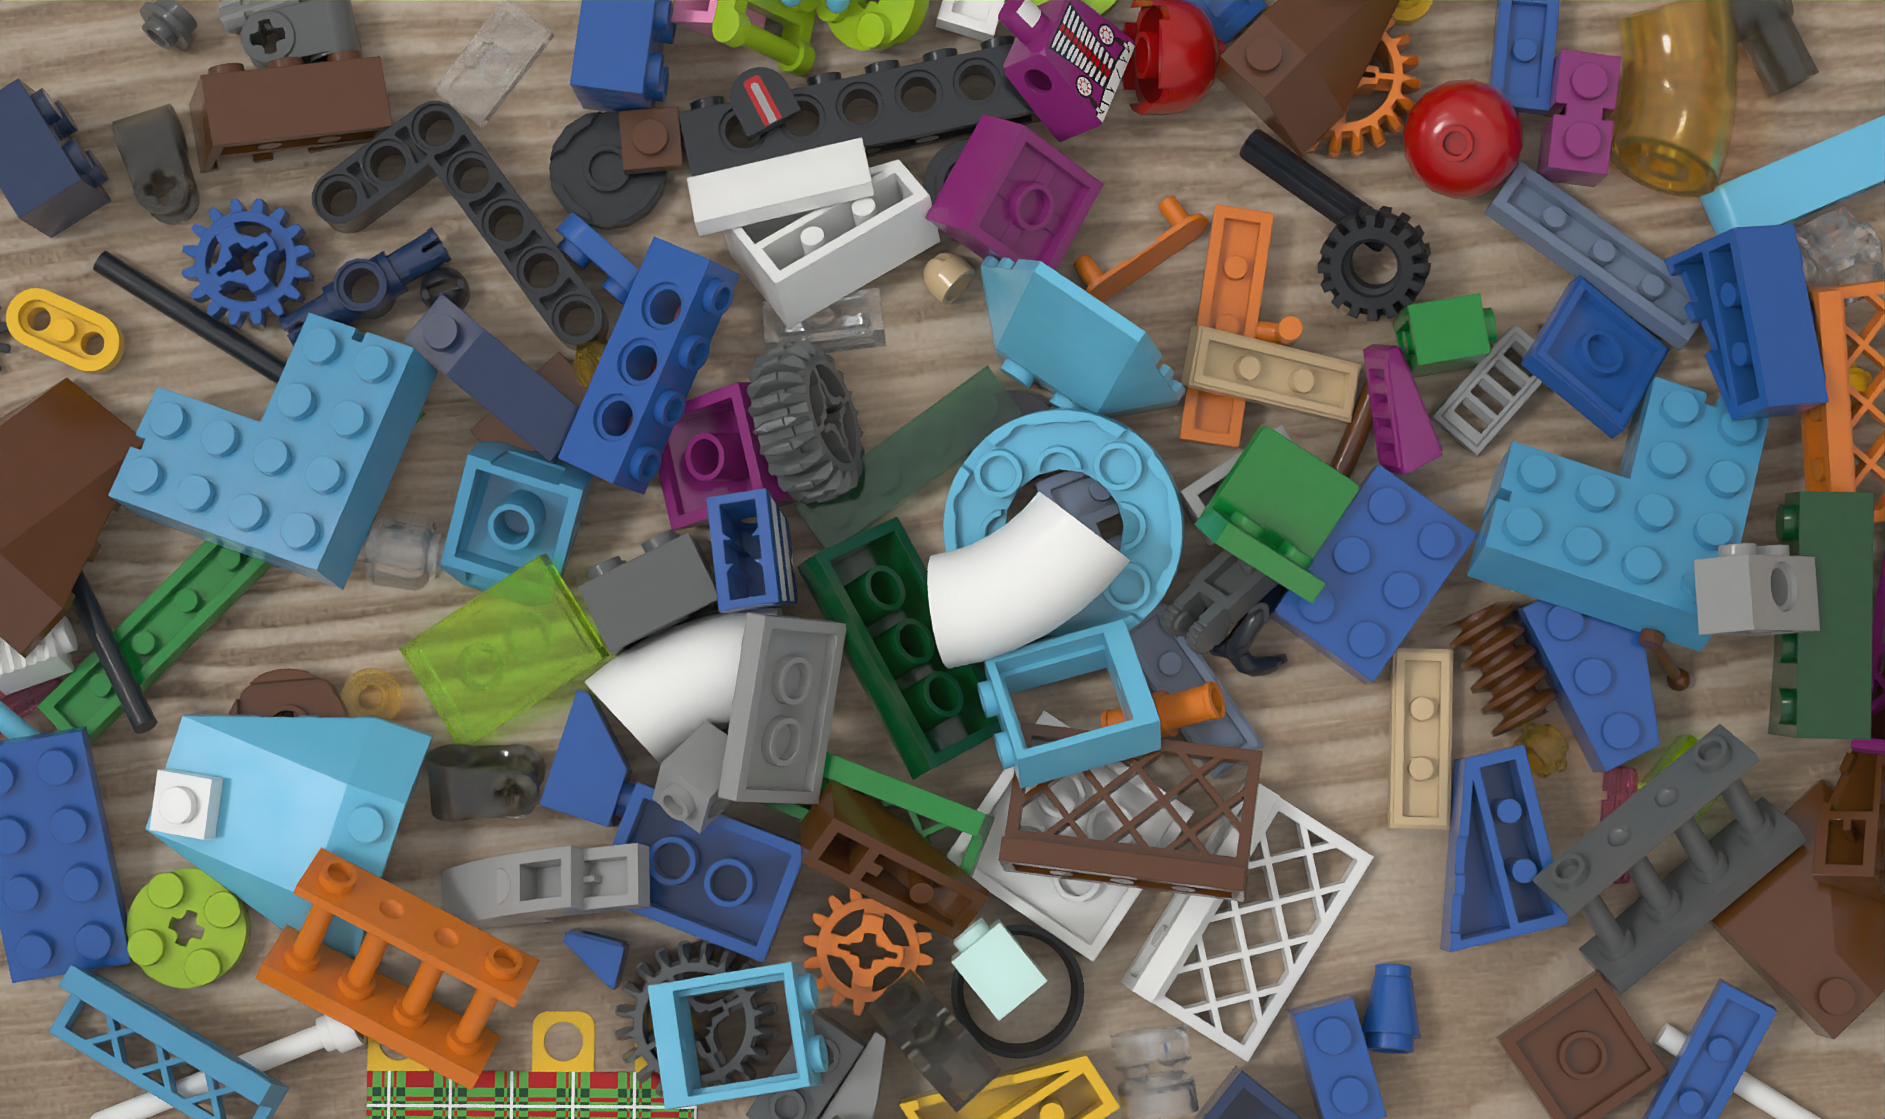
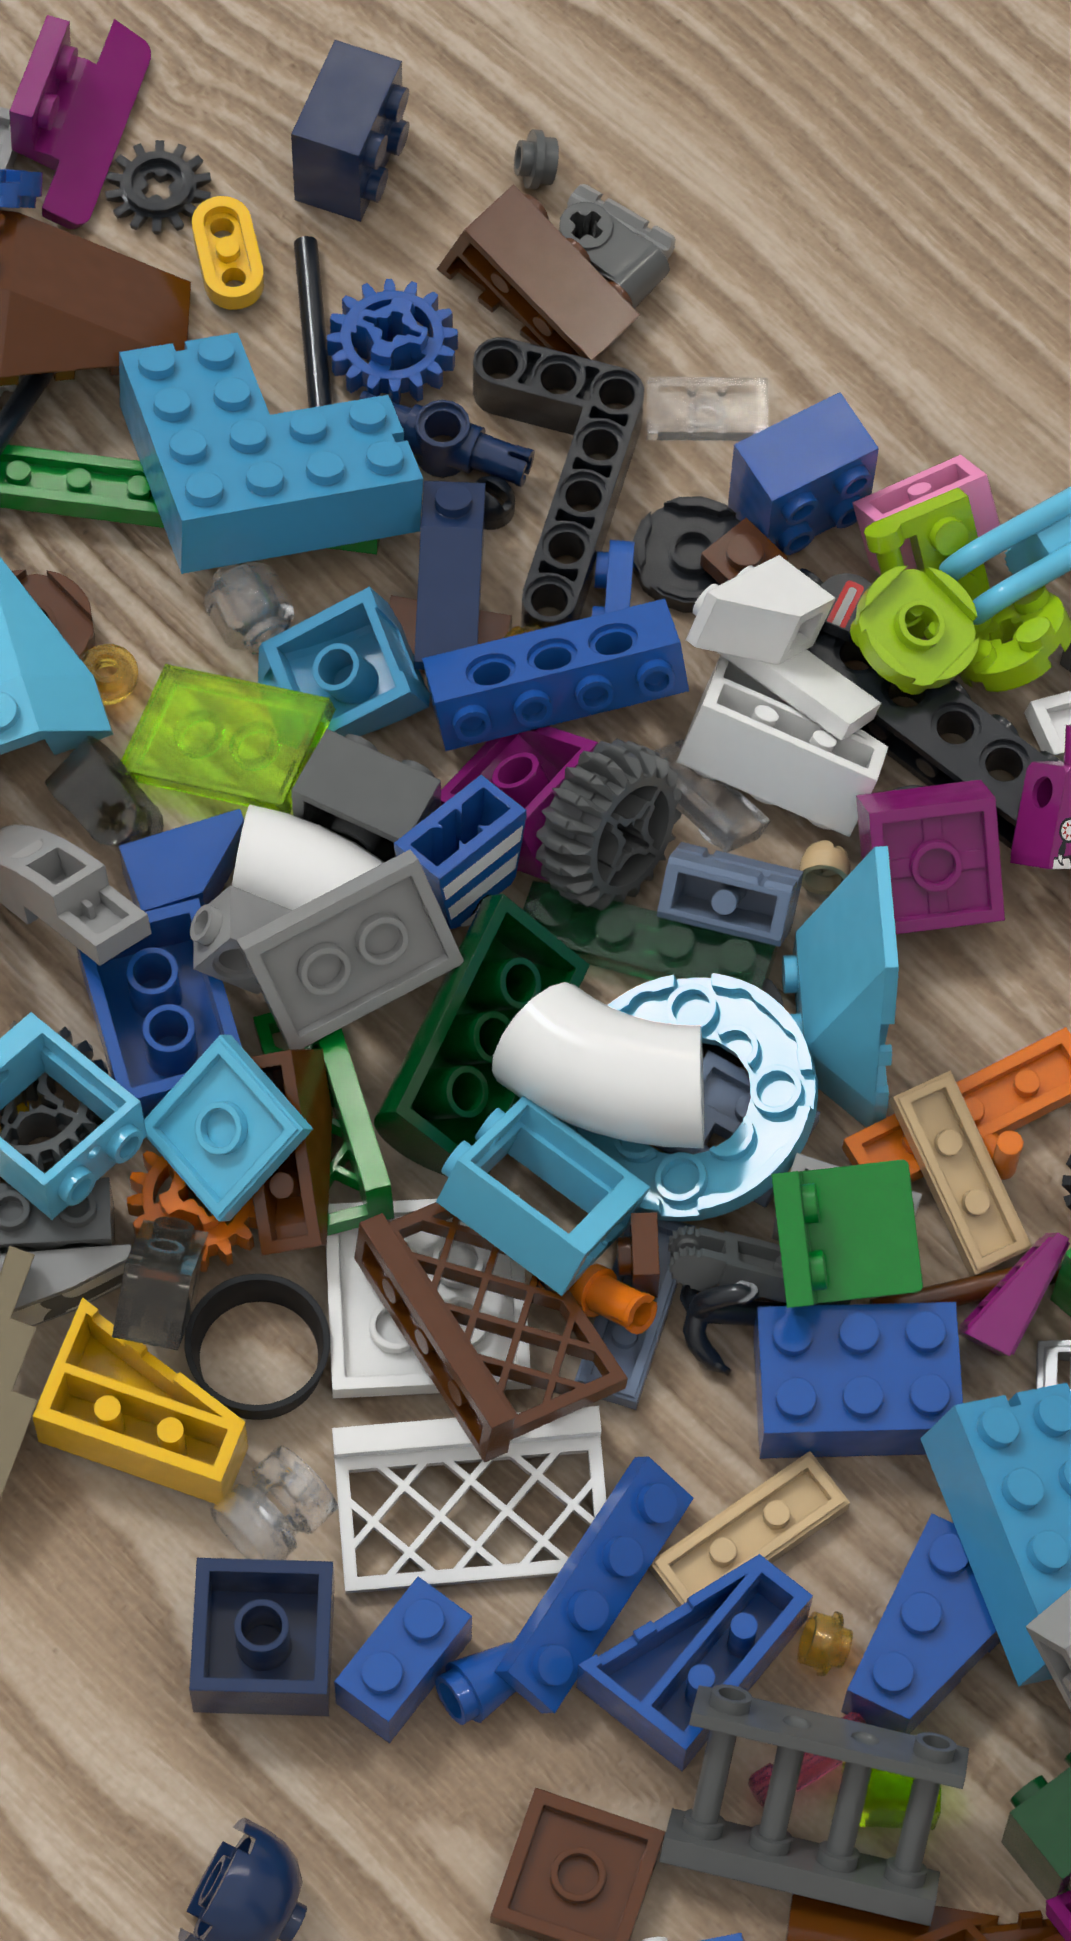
camera: 45 degrees right, 20 degrees down
(156, 155) = (418, 228): clear smoke piece -> none
(601, 953) = (28, 988): blue slope -> none
(732, 176) = (761, 613): none -> white slope
(808, 92) = (889, 646): none -> lime plate
(847, 904) = (225, 1128): none -> medium azure tile
(924, 370) = (730, 894): none -> sand blue brick
(996, 966) = (265, 1284): light aqua brick -> none
(1164, 662) = (640, 1253): none -> reddish brown plate
(1183, 232) = (997, 1017): orange piece -> none
(1382, 883) = (594, 1584): none -> blue plate
(1502, 666) = (864, 1547): reddish brown piece -> none
(1677, 678) = (994, 1634): reddish brown hinge -> none

